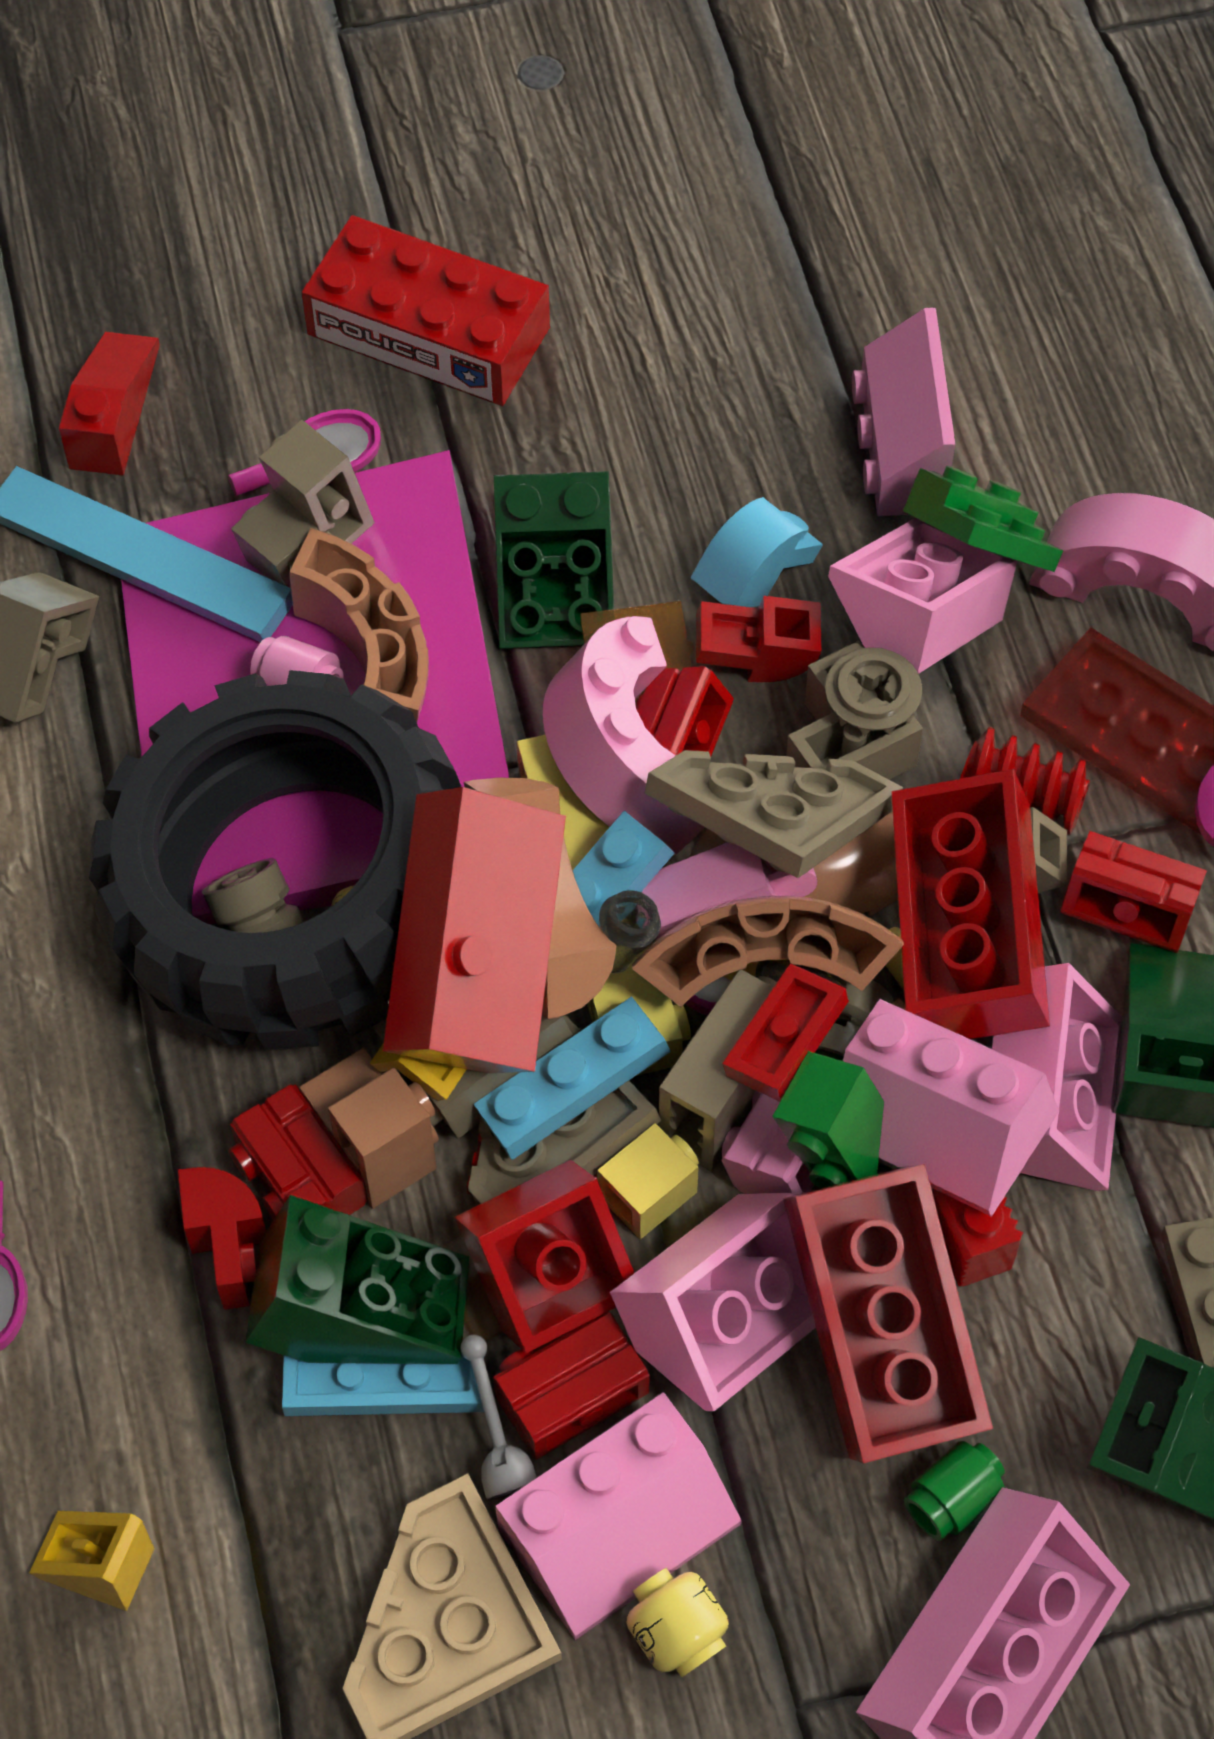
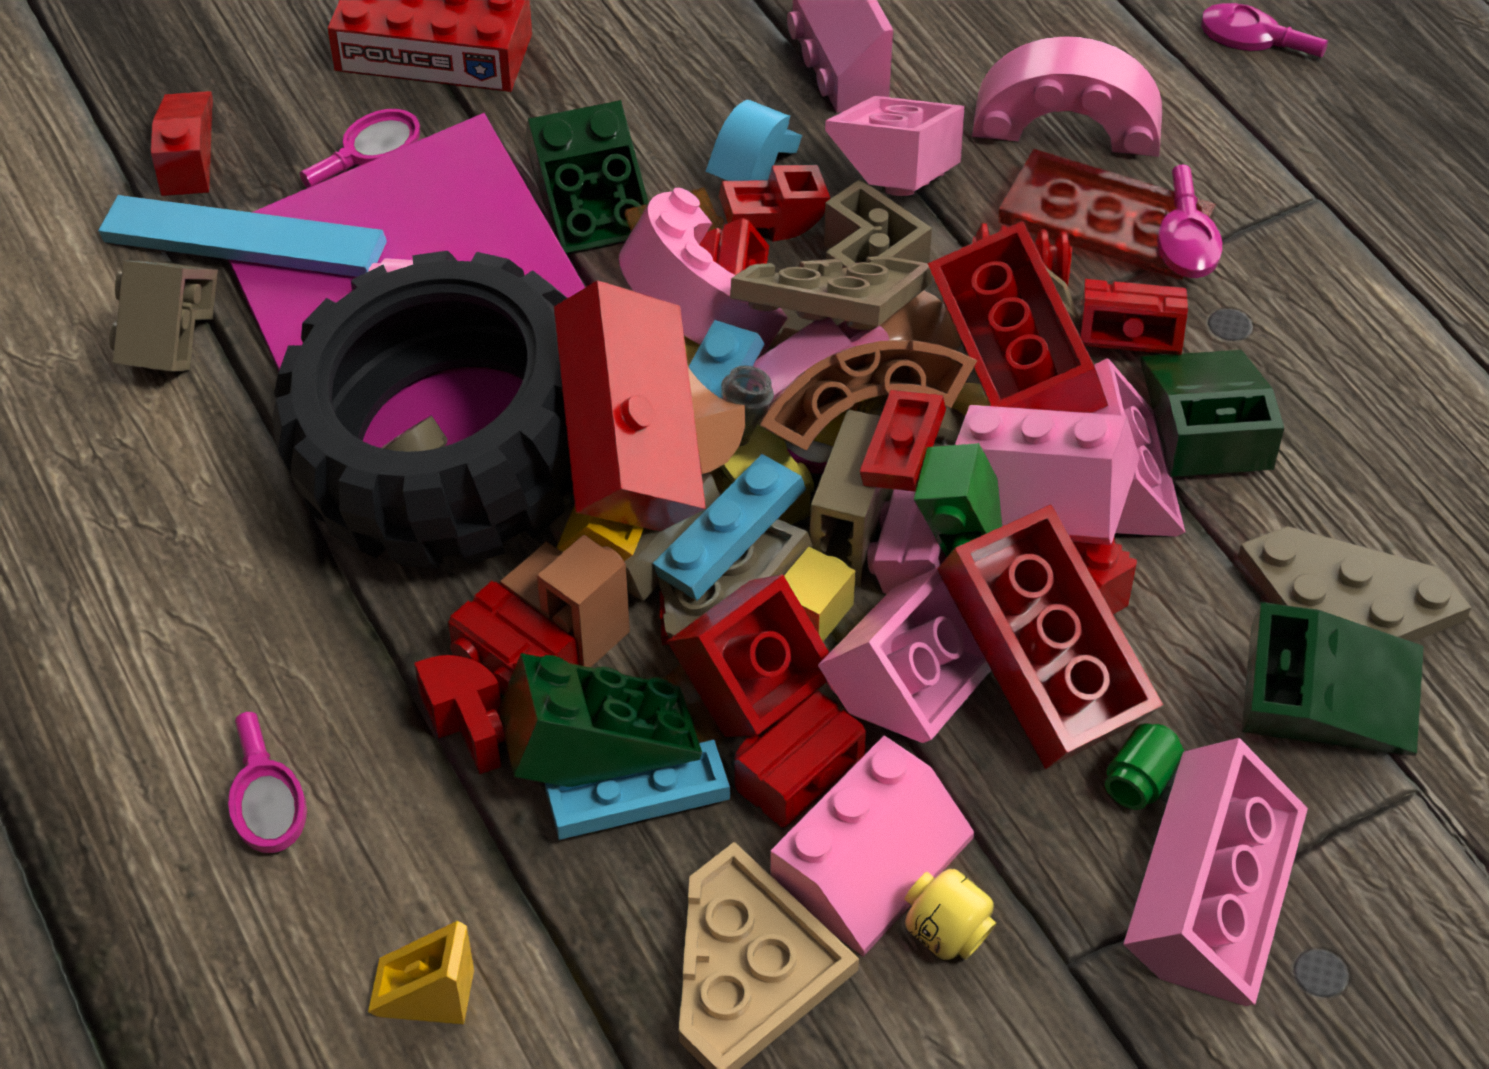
camera: 15 degrees left, 10 degrees down
(311, 490) = (385, 165): dark tan brick -> none
(362, 607) = (429, 218): nougat brick -> none
(506, 1466) = (763, 829): light grey hinge -> none
(872, 669) = (877, 193): dark tan gear -> none
(981, 517) = (928, 80): green plate -> none

